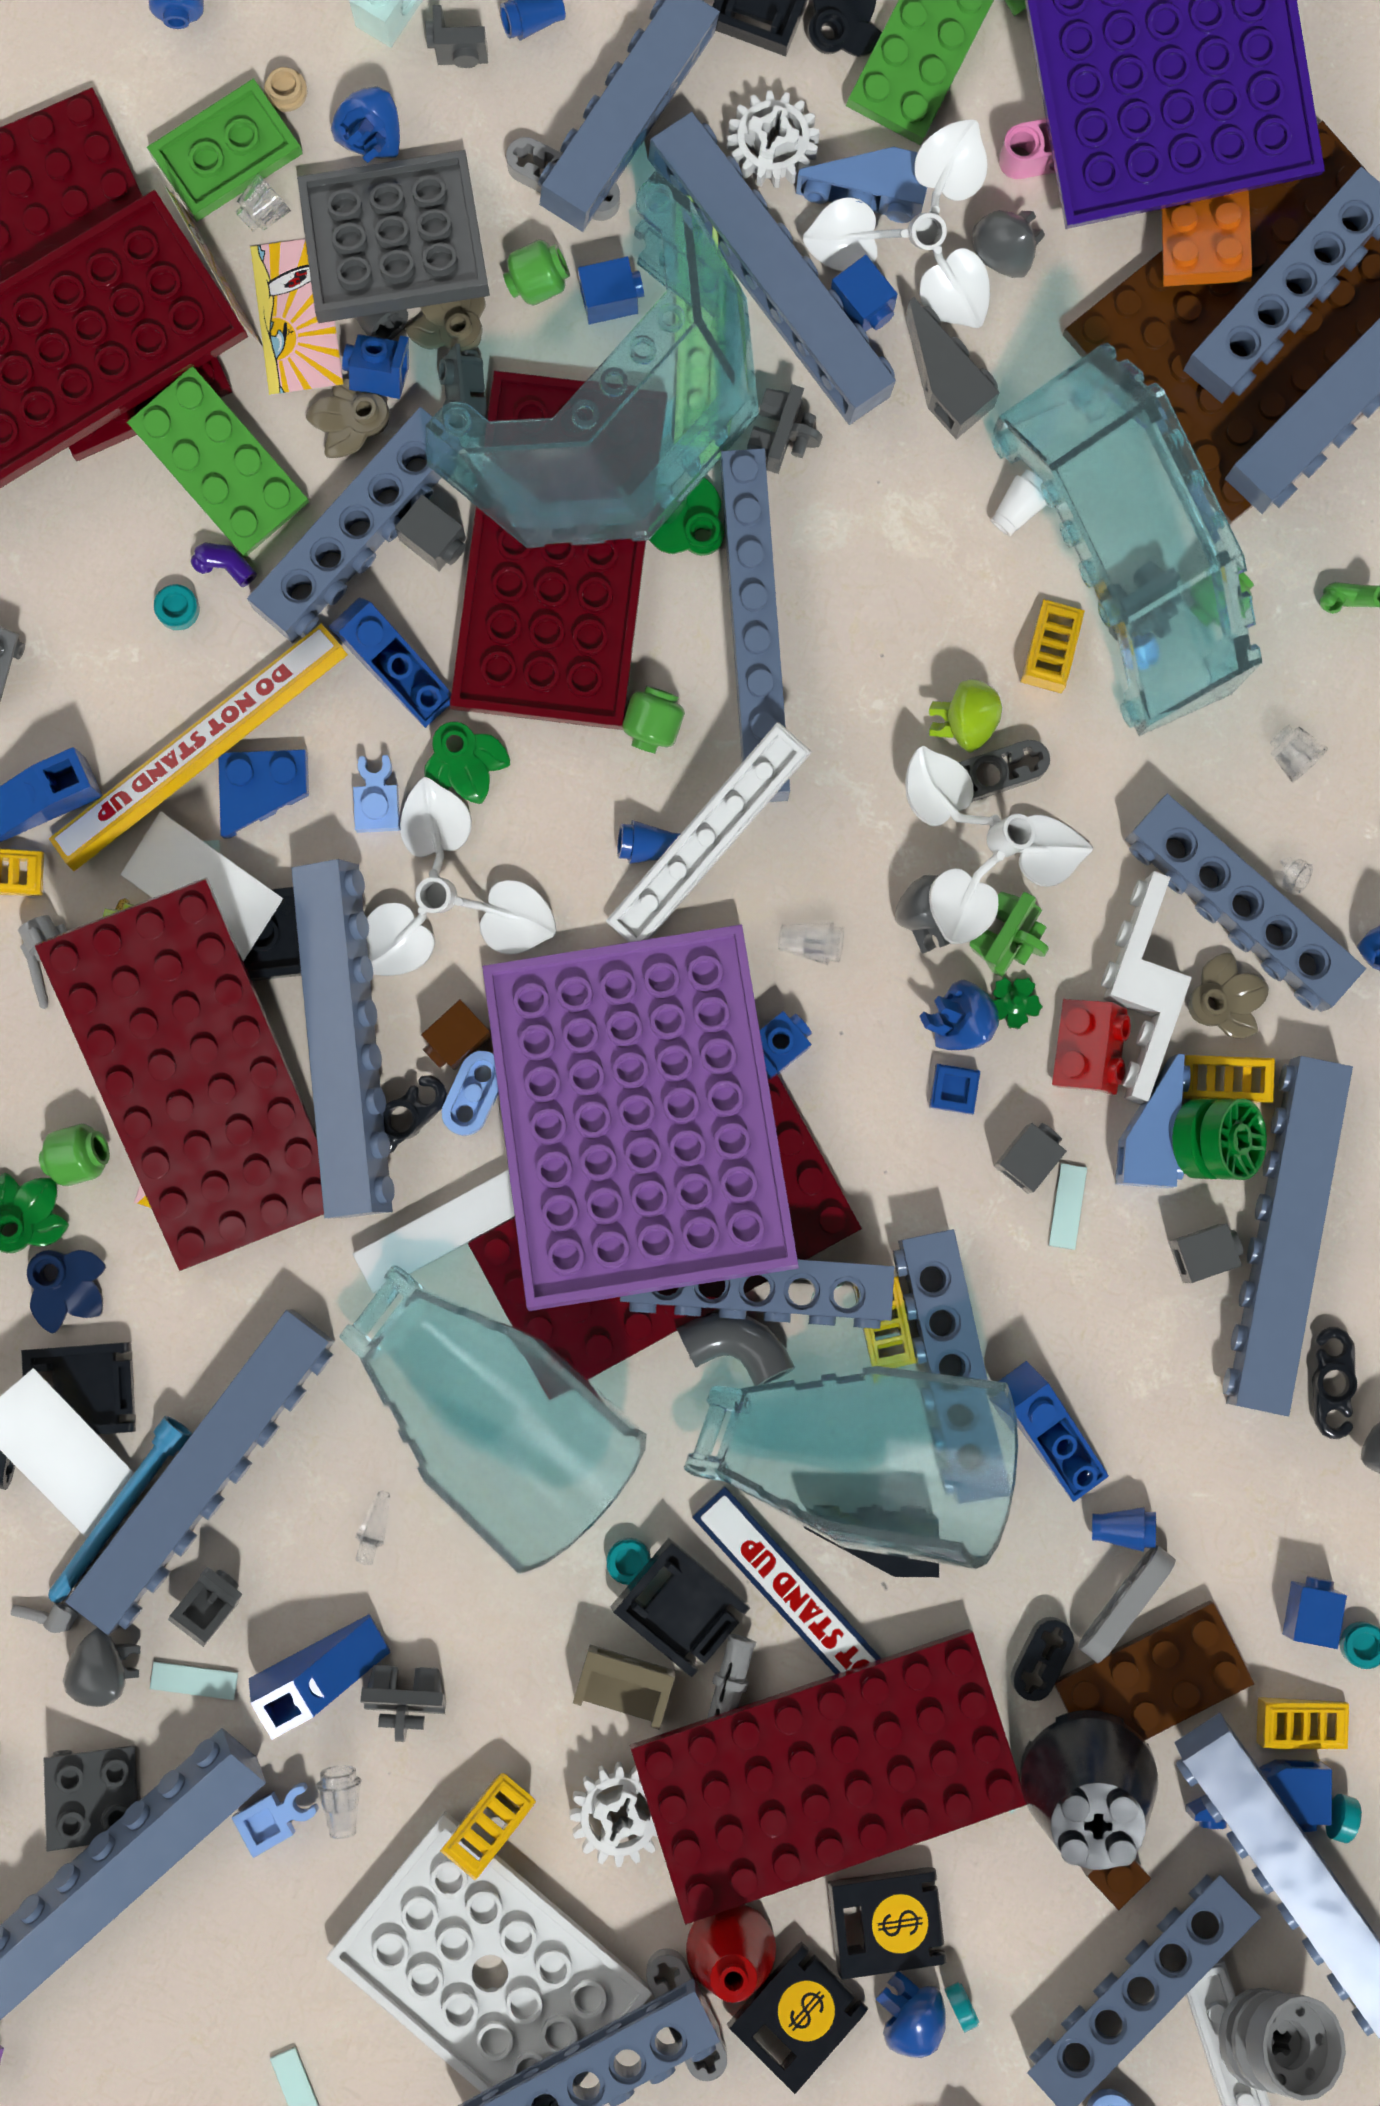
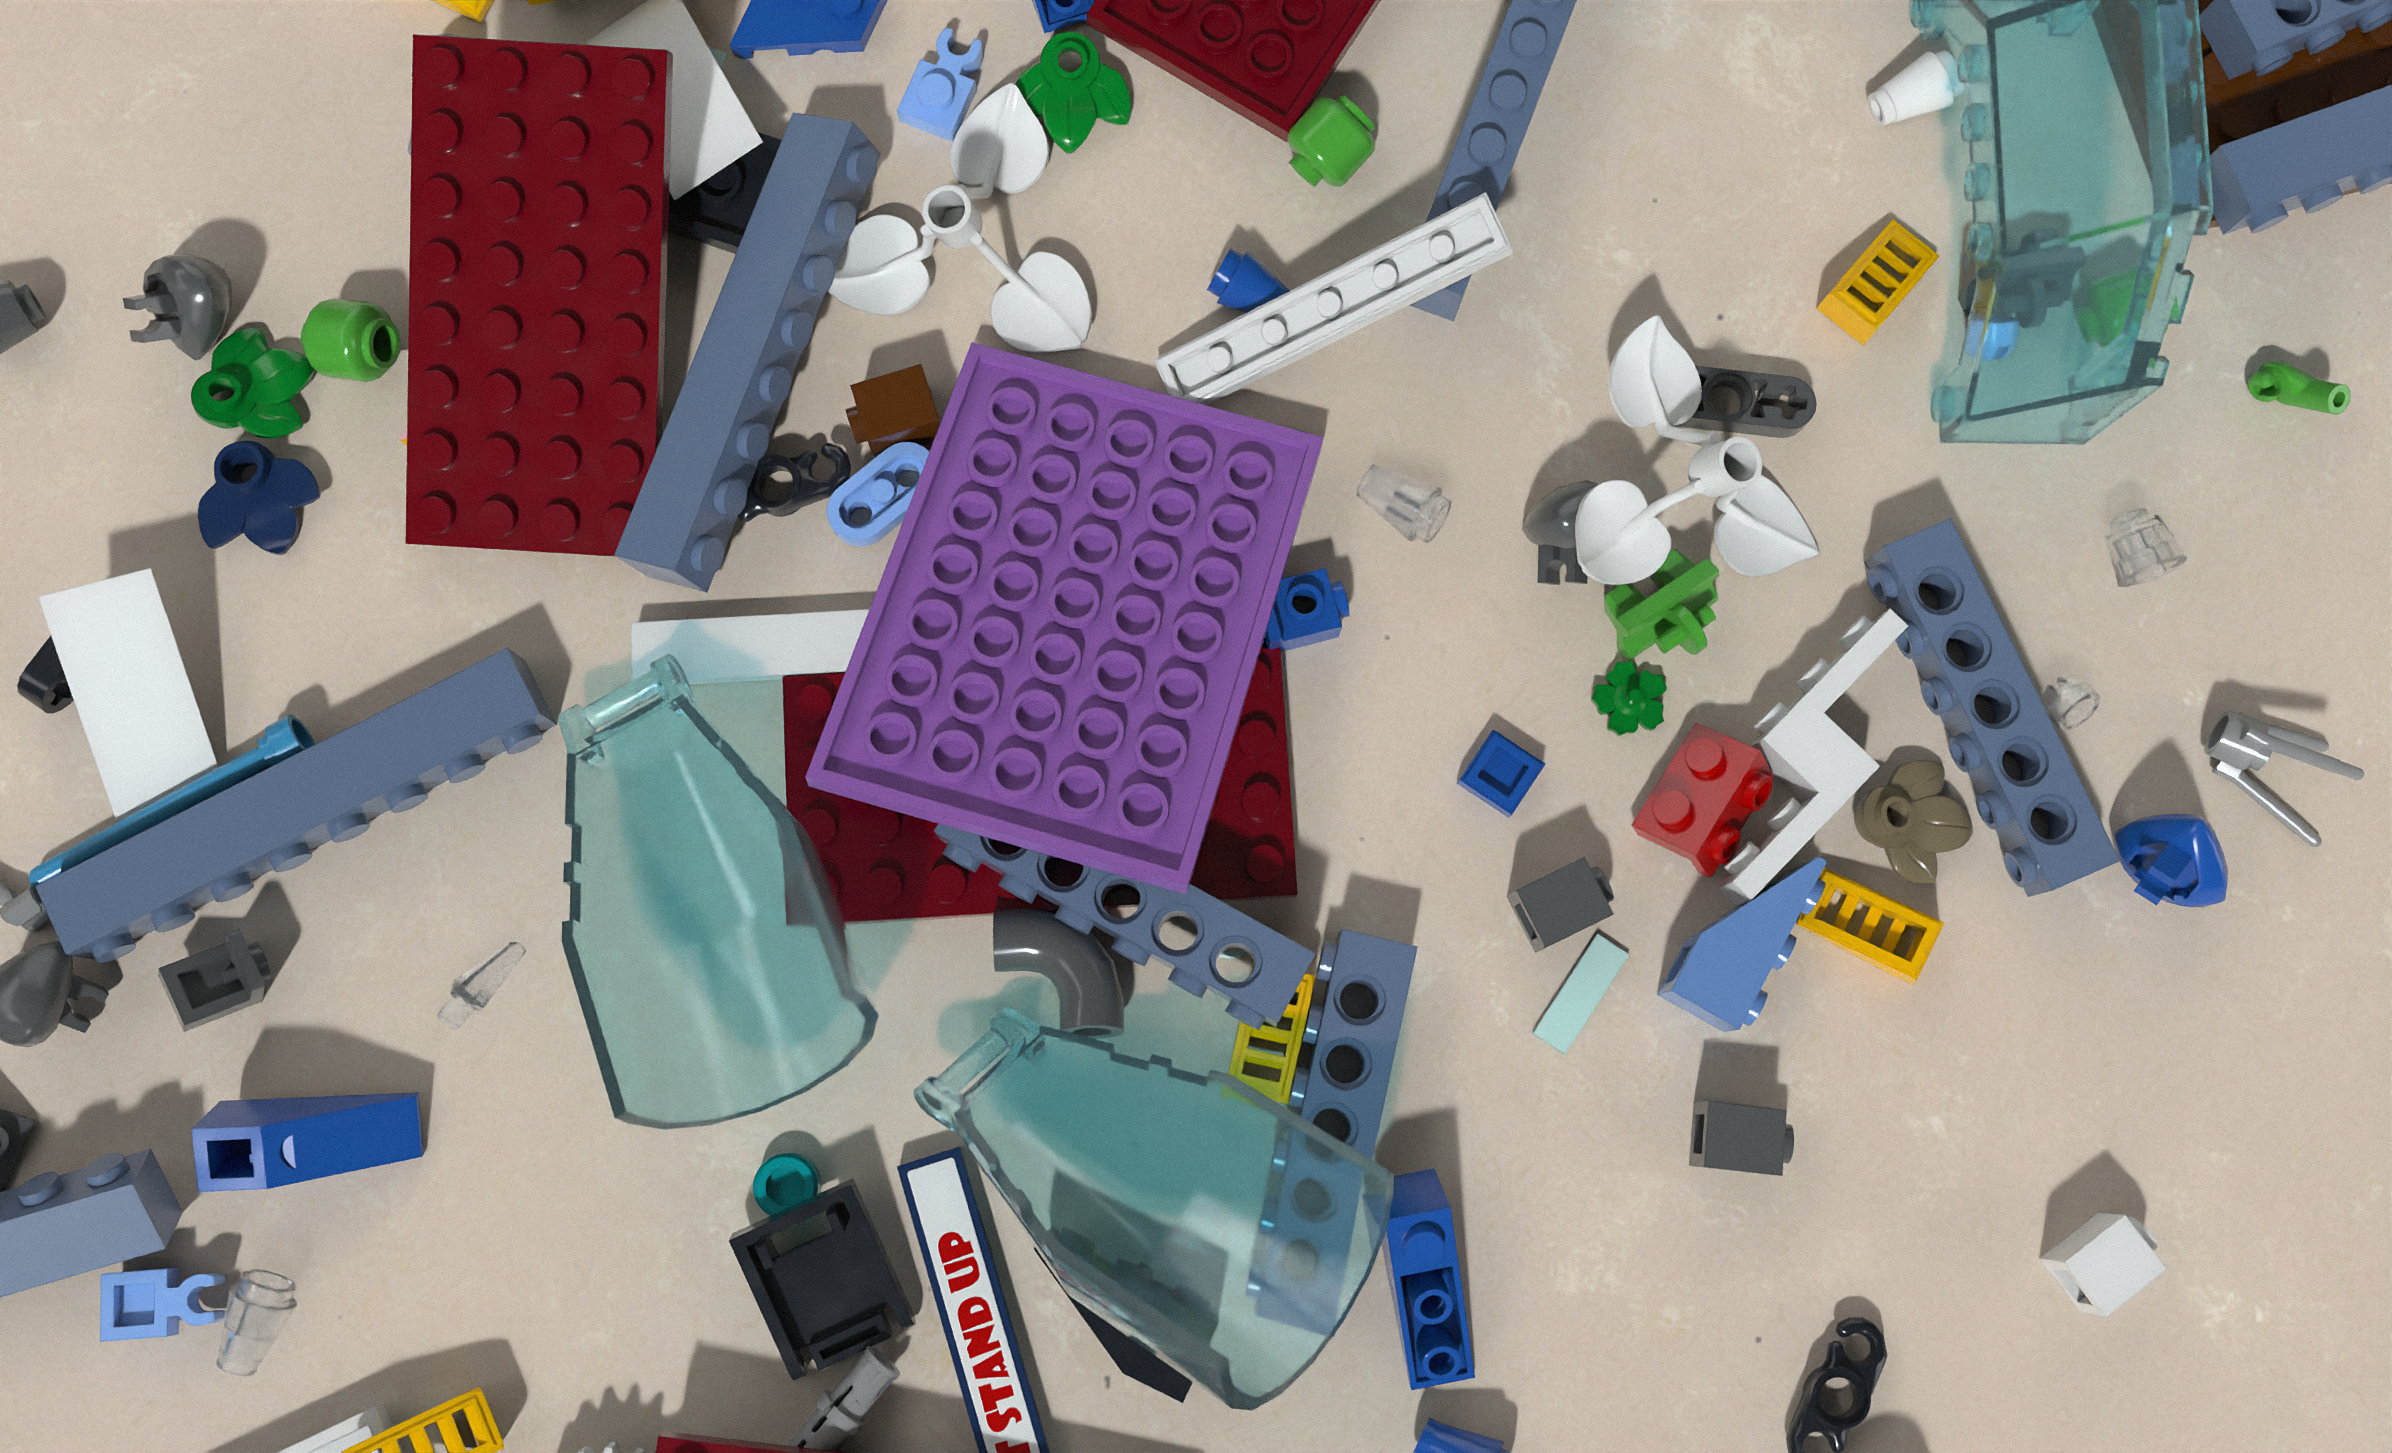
camera: 25 degrees right, 5 degrees down
(90, 1382) = (223, 630): black container -> none
(194, 1680) = (155, 1072): light aqua window -> none
(384, 1696) = (381, 1208): dark grey hips -> none
(625, 1684) = (699, 1346): dark tan panel -> none
(964, 1018) = (1555, 686): blue piece -> none
(969, 716) = (1737, 313): lime piece -> none
(1219, 1139) = (1825, 992): green wheel -> none
(1288, 1235) = (1859, 1169): sand blue brick -> none

